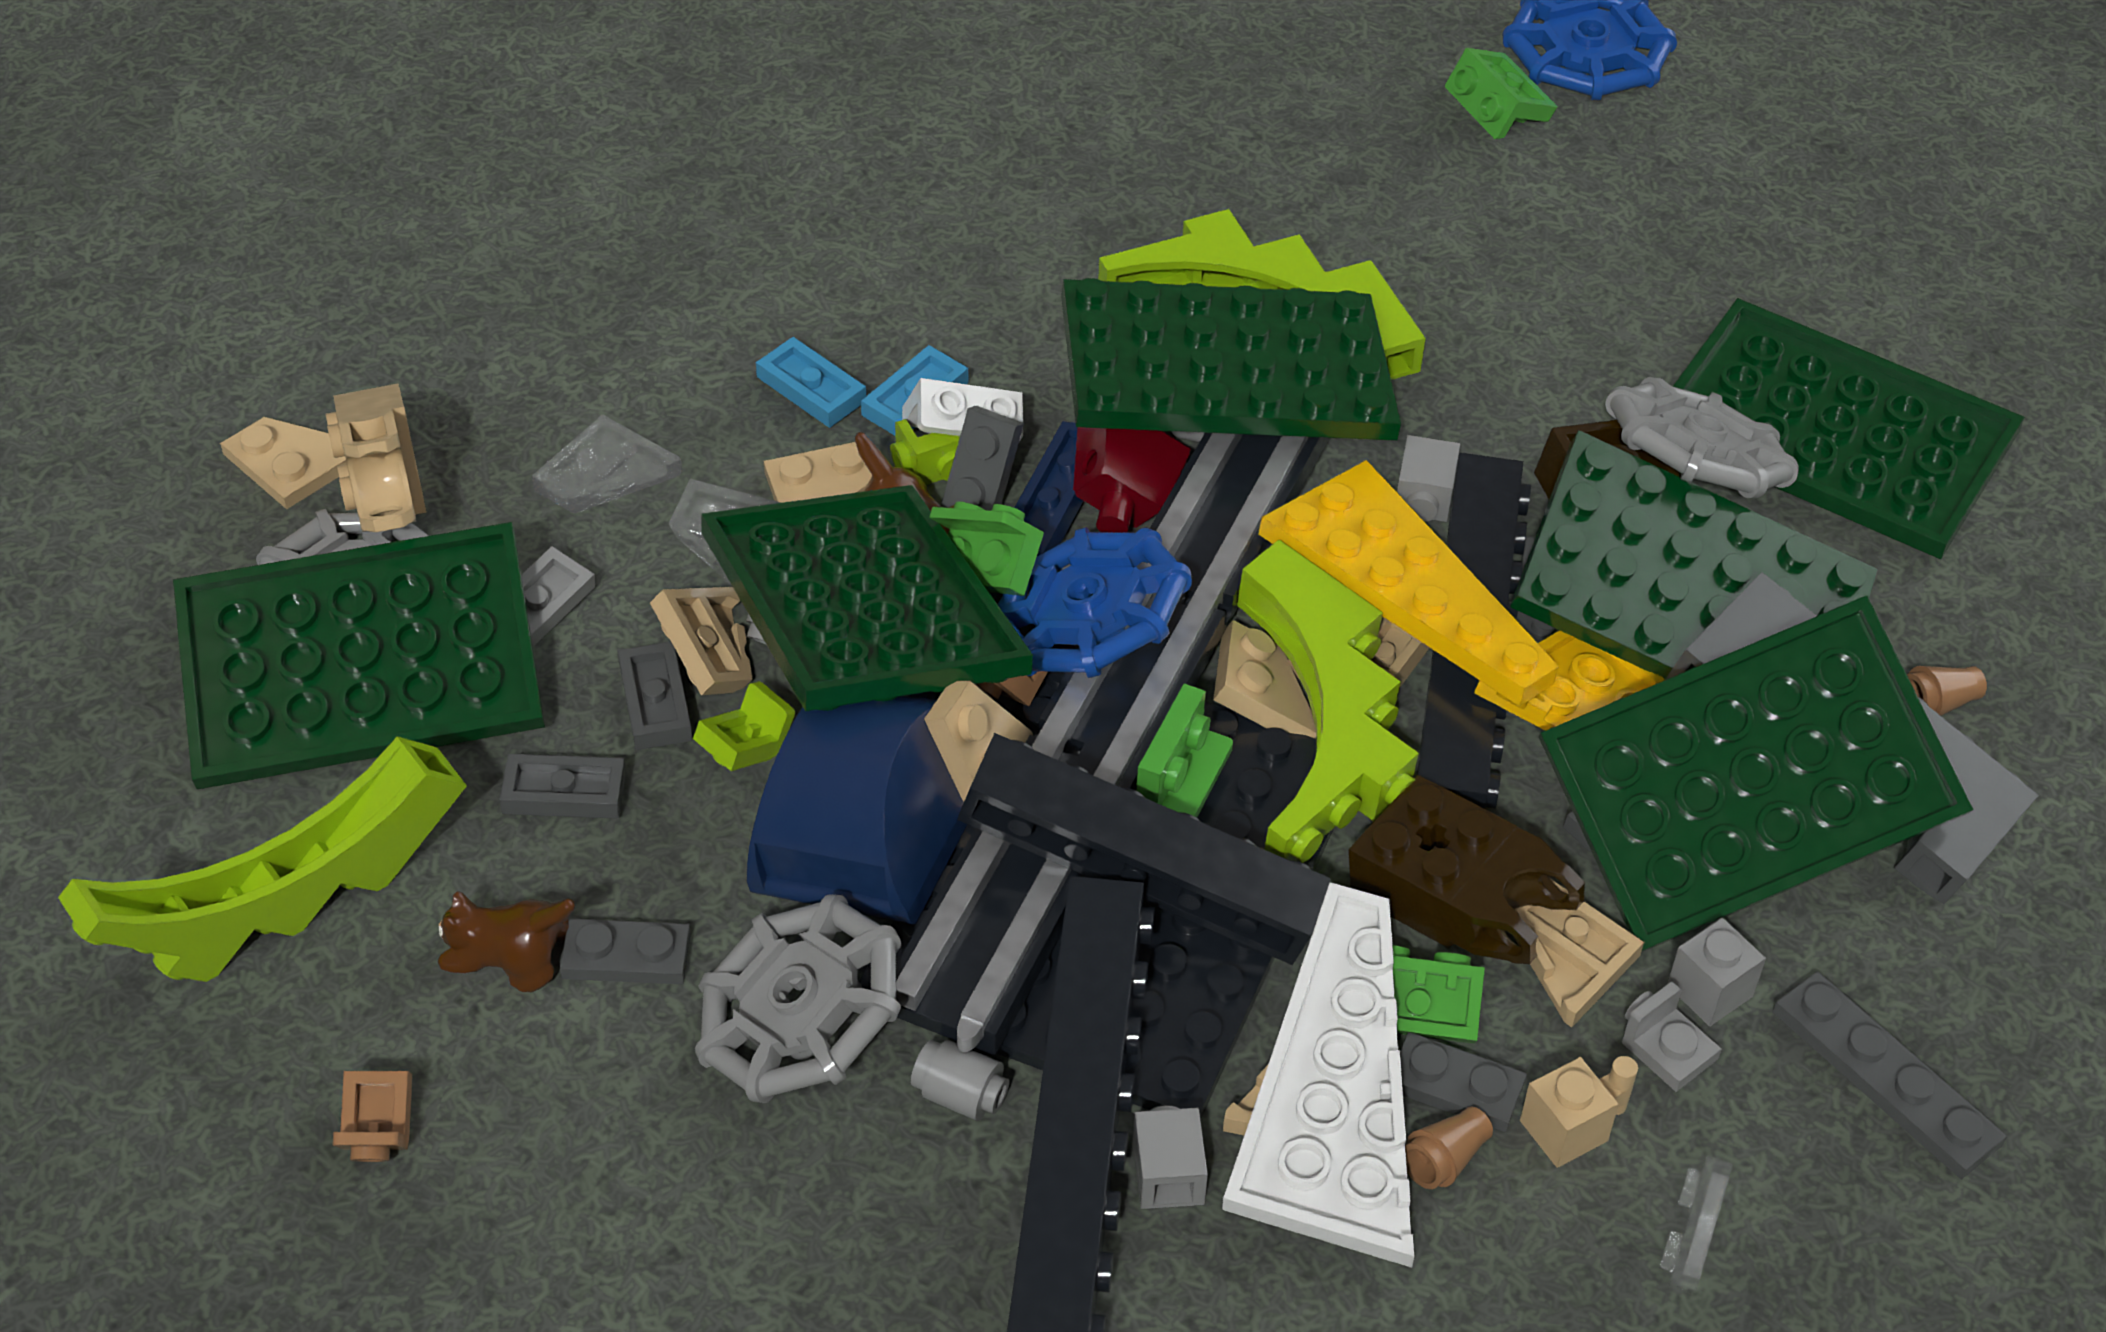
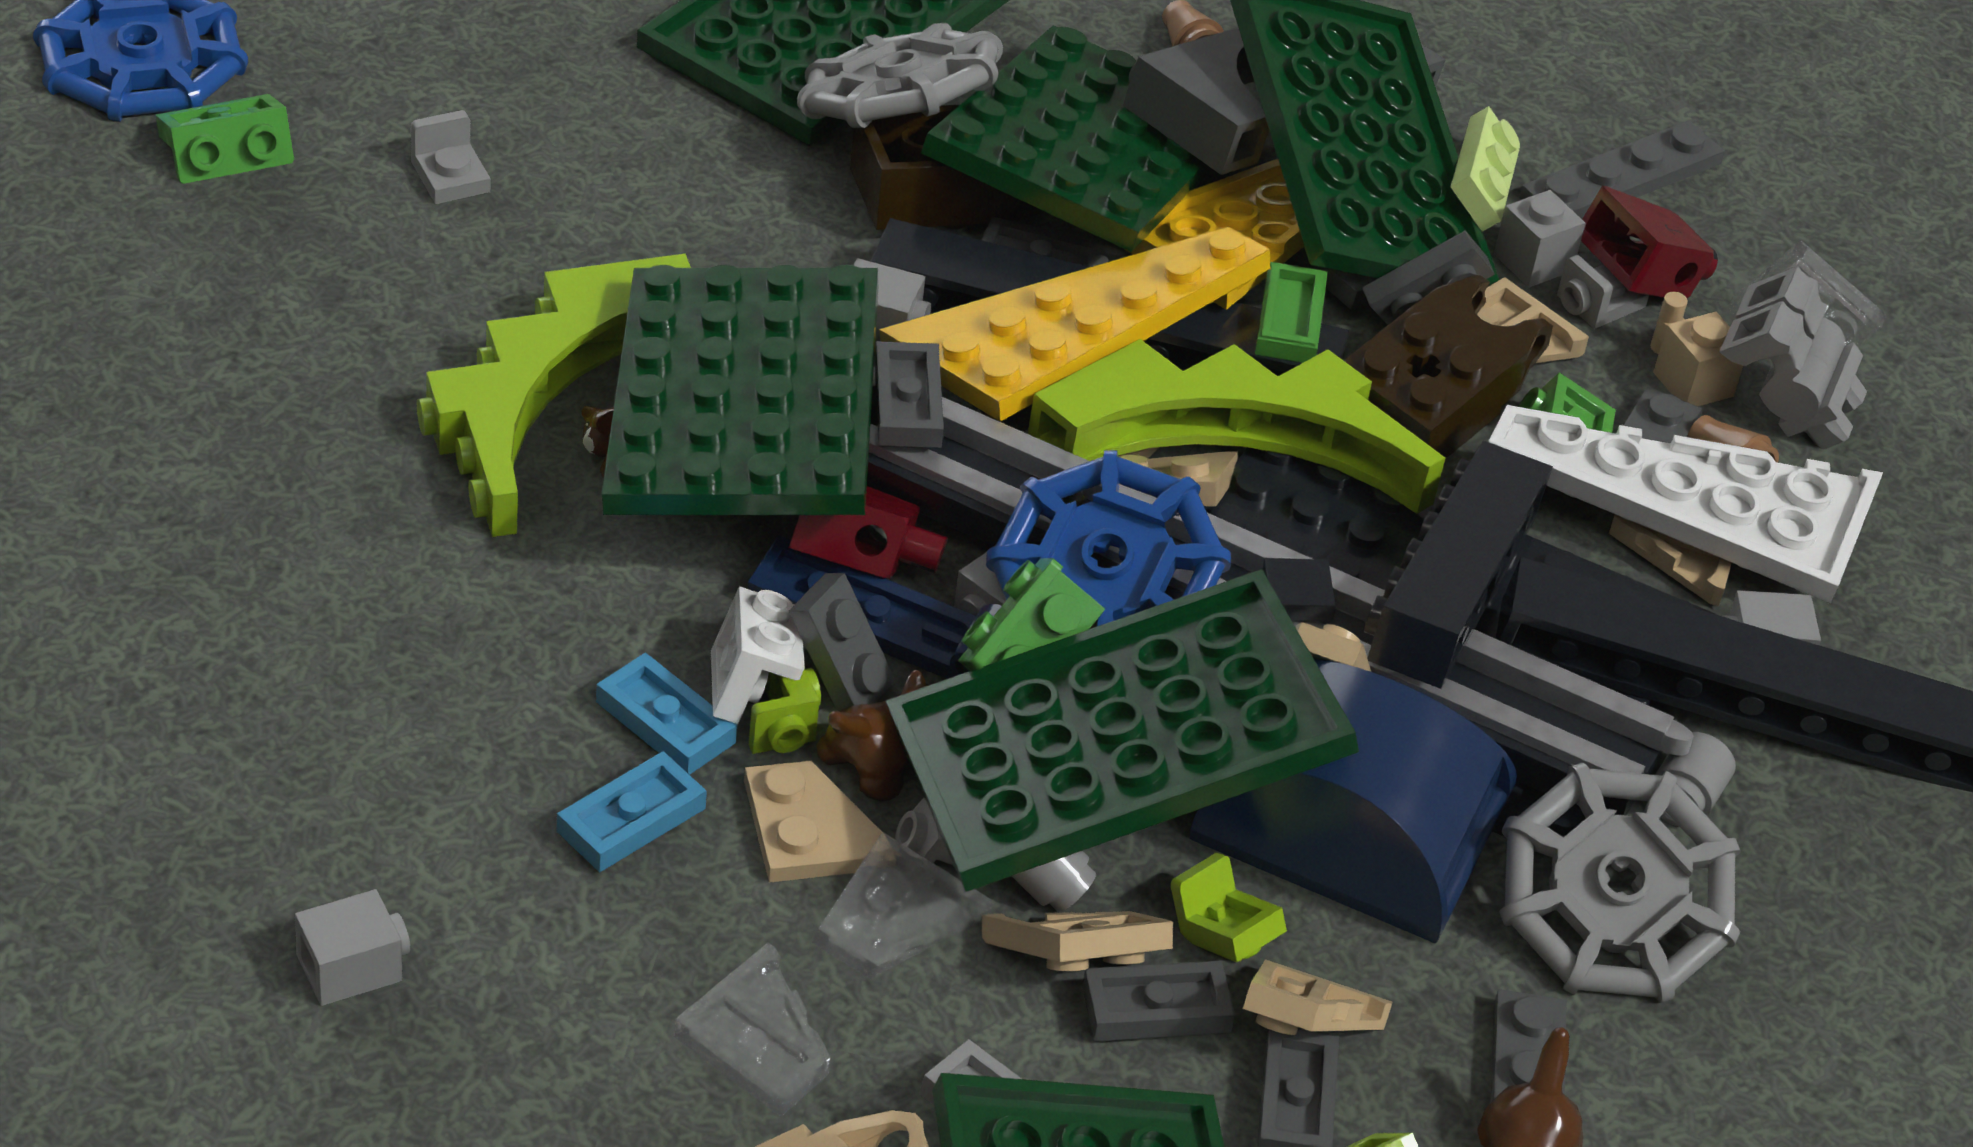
camera: 90 degrees left, 5 degrees down
(646, 776) = (1297, 999): none -> tan wing
(655, 250) = (350, 946): none -> light grey brick
(1077, 728) = (1302, 587): none -> black tile
(1183, 756) = (1318, 527): bright green bracket -> none
(1248, 456) = (908, 394): none -> dark grey plate
(1485, 741) = (1291, 312): none -> bright green tile
(1522, 215) = (446, 158): none -> light grey bracket
(1562, 1202) = (1811, 367): none -> light grey hips
(1587, 855) = (1414, 280): none -> dark grey plate
(1729, 1066) = (1666, 258): none -> dark red torso
(1806, 919) = (1486, 167): none -> yellowish green plate

